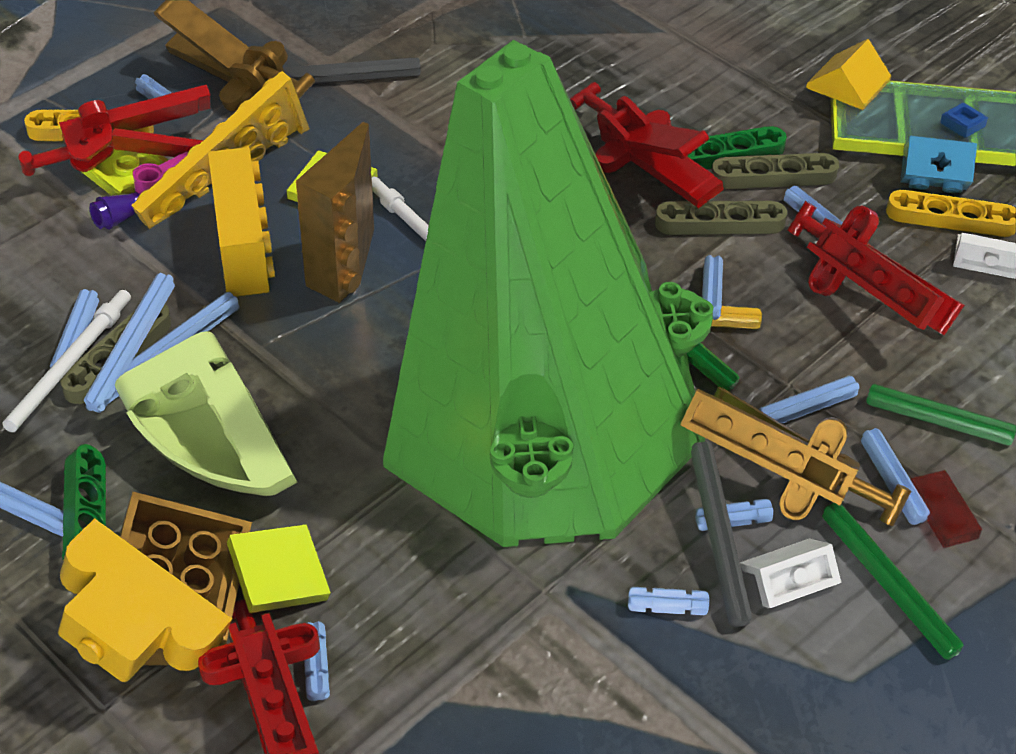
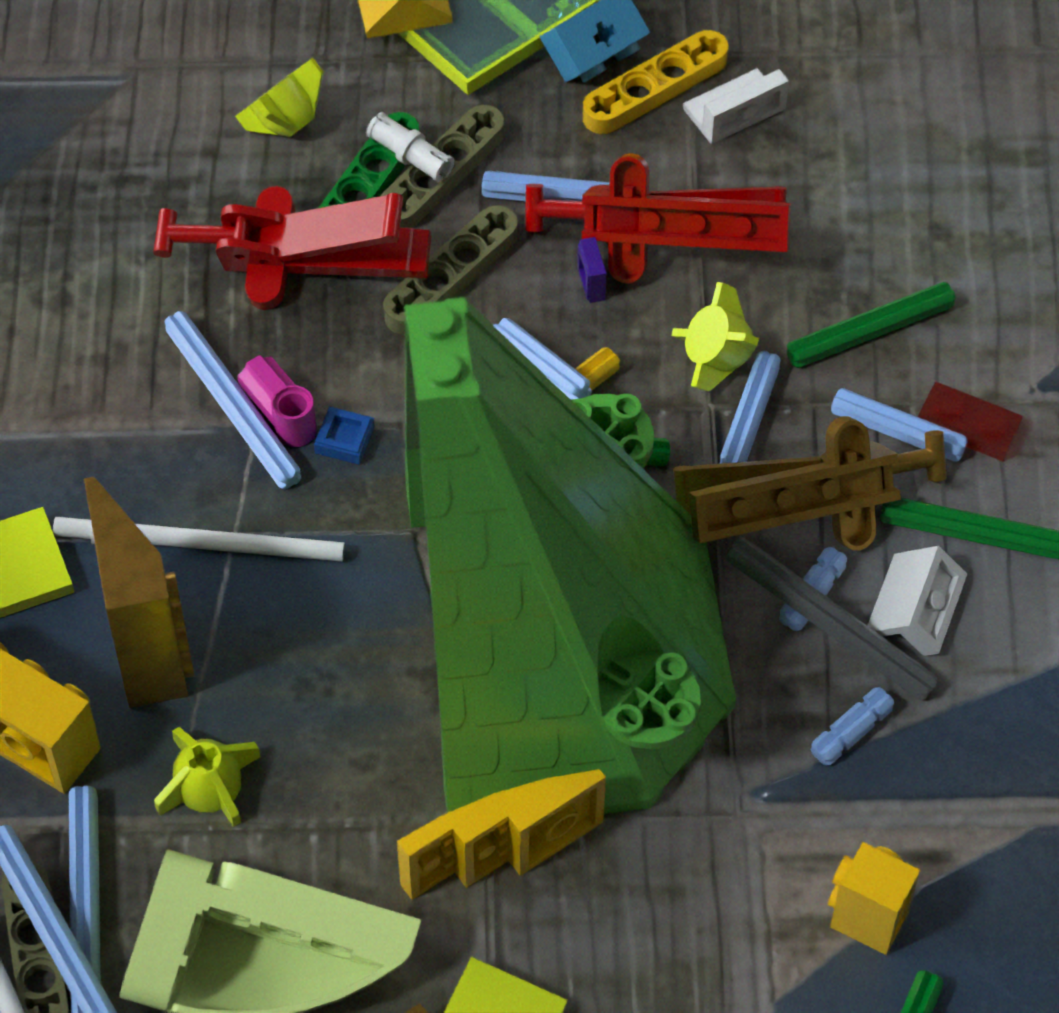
camera: 45 degrees left, 10 degrees up
(296, 339) = (206, 775): none -> neon yellow piece
(396, 475) = (510, 825): none -> yellow slope
(556, 686) = (872, 896): none -> yellow brick
(721, 83) = (287, 104): none -> neon yellow piece
(763, 143) = (410, 147): none -> white pin
(797, 268) = (591, 270): none -> dark purple tile
(830, 350) = (717, 339): none -> neon yellow piece

